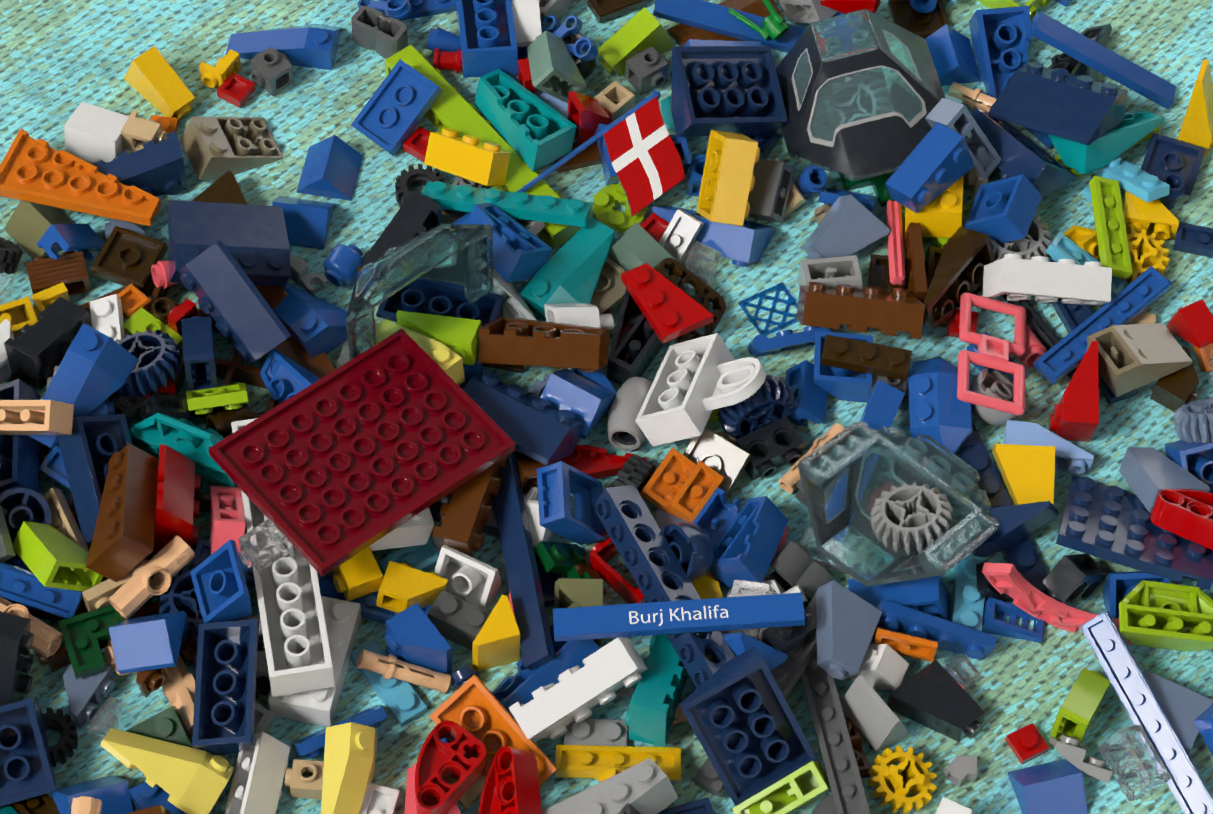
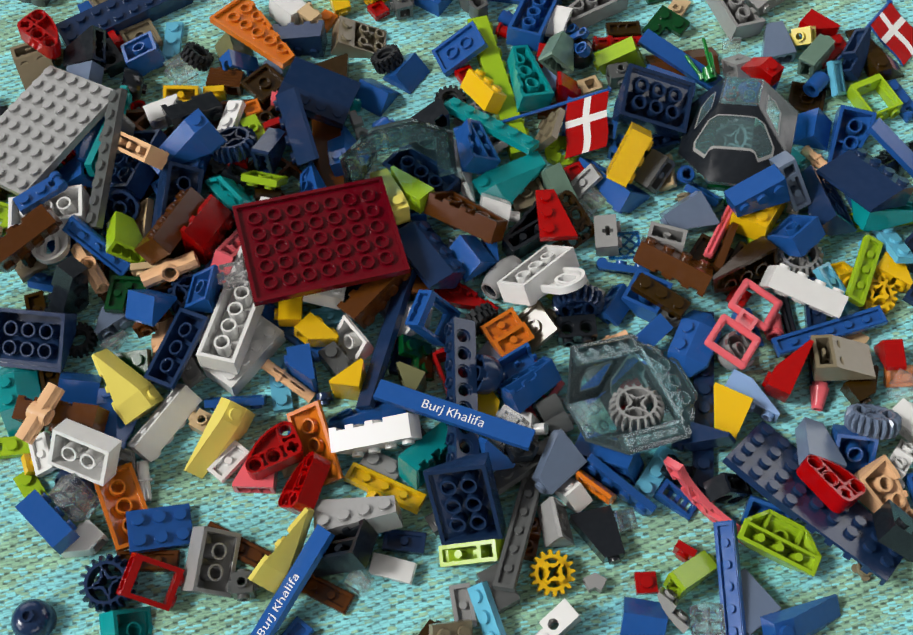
camera: 30 degrees right, 5 degrees up
(293, 159) = (387, 59): none -> black tyre
(592, 178) = (549, 129): none -> dark tan plate
(608, 26) = (604, 42): none -> red pin
(745, 303) = (606, 237): none -> light grey brick
(1057, 682) = (683, 551): none -> red plate
(1127, 412) = (818, 395): none -> coral cone

